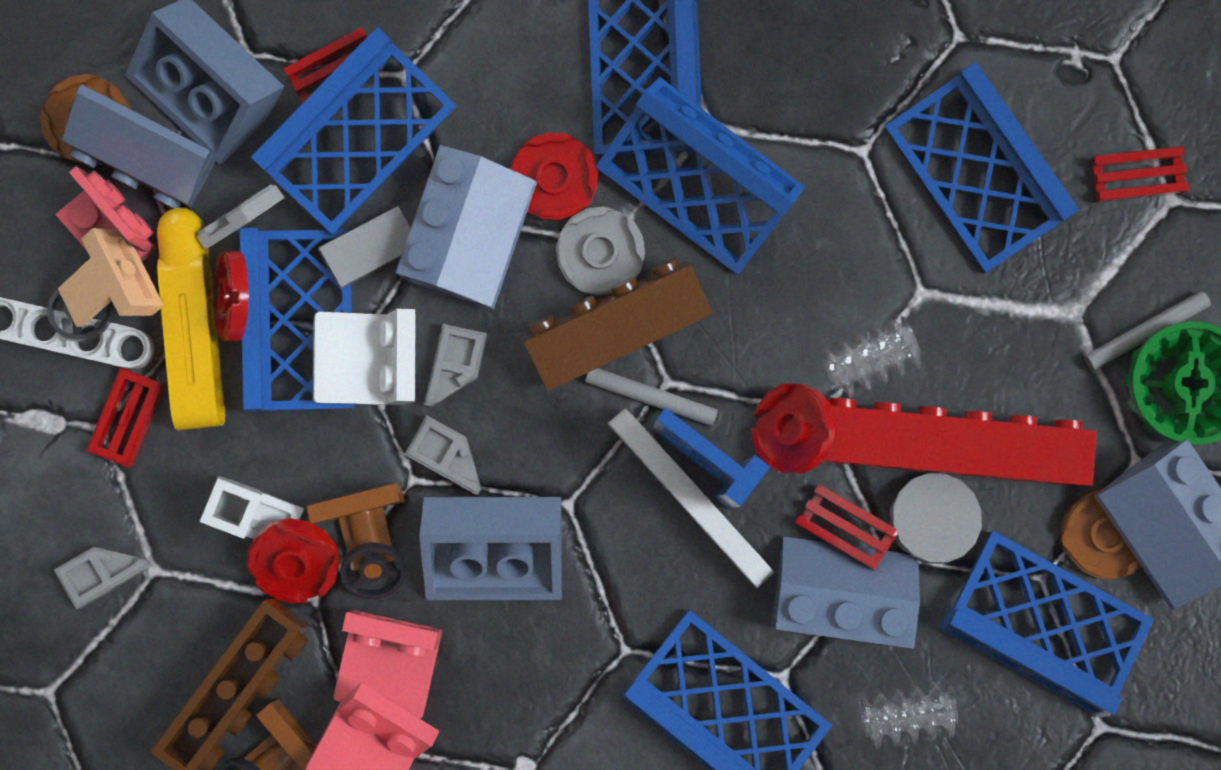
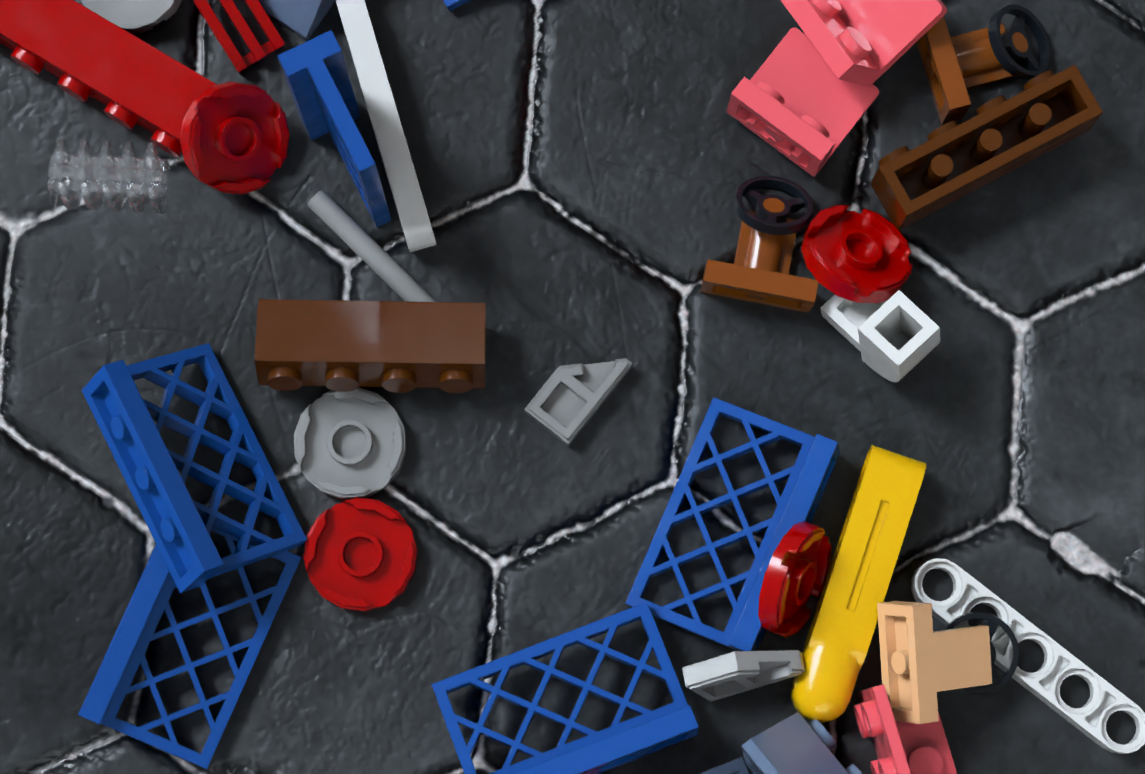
camera: 160 degrees left, 5 degrees down
(98, 573) = (1083, 350): light grey tile -> none
(142, 423) = (1013, 476): red tile -> none
(364, 358) = (672, 440): white bracket -> none
(366, 247) = (611, 569): light grey tile -> none
(445, 453) = (634, 300): light grey tile -> none
(466, 227) = (488, 533): slope -> none
(492, 548) = (628, 169): sand blue slope -> none

